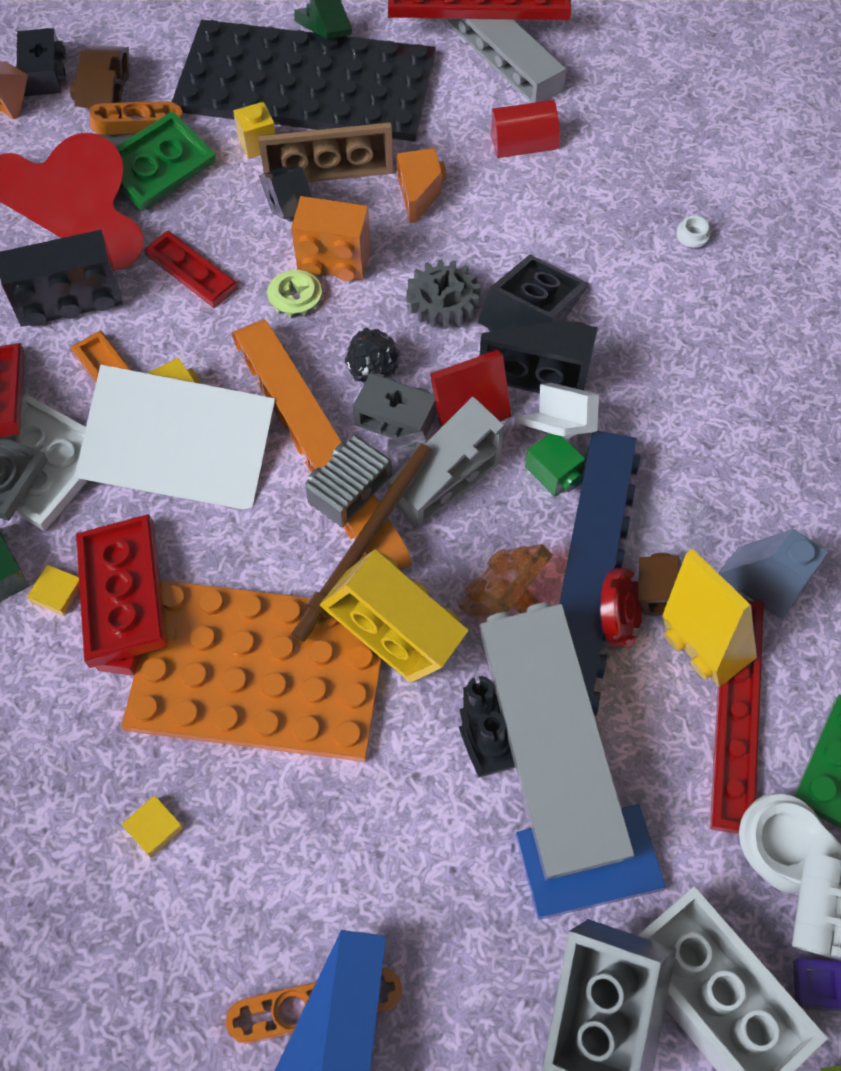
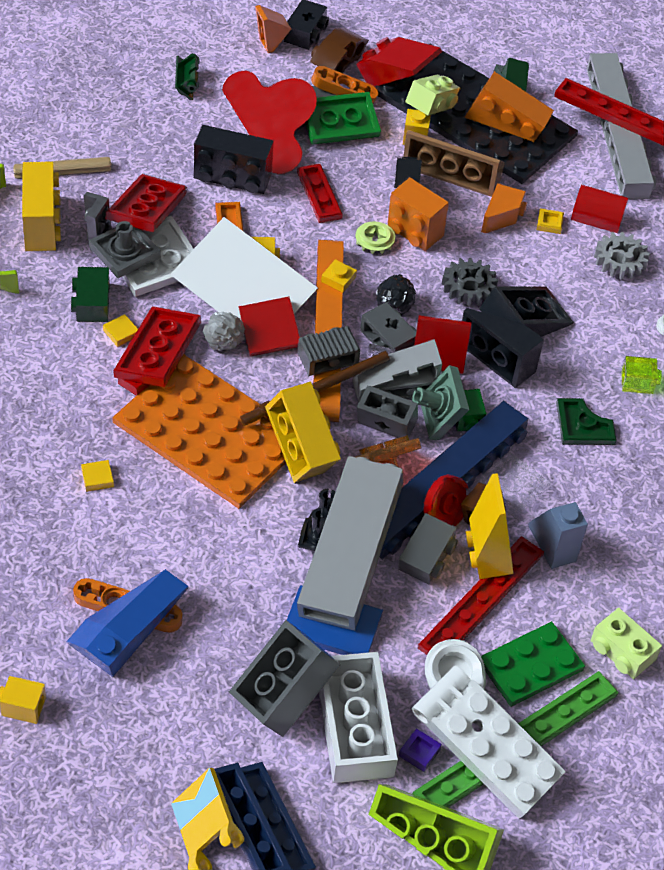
camera: 25 degrees right, 10 degrees down
(181, 56) = (395, 60): none -> red slope
(194, 521) = (224, 331): none -> light grey piece
(245, 481) = (269, 326): none -> red tile
(253, 78) = (433, 94): none -> yellowish green brick
(292, 369) = (339, 276): none -> yellow plate
(350, 55) = (509, 109): none -> orange wedge
(468, 522) = (387, 412): none -> dark grey brick
(478, 171) = (550, 221): none -> yellow tile
(527, 472) = (442, 402): none -> sand green plate
(564, 411) = (495, 382): white panel -> none
(587, 173) = (621, 255): none -> light grey gear
(640, 685) = (427, 549): none -> dark grey brick
(686, 409) = (581, 425): none -> dark green tile
(709, 311) = (640, 374): none -> clear neon green brick

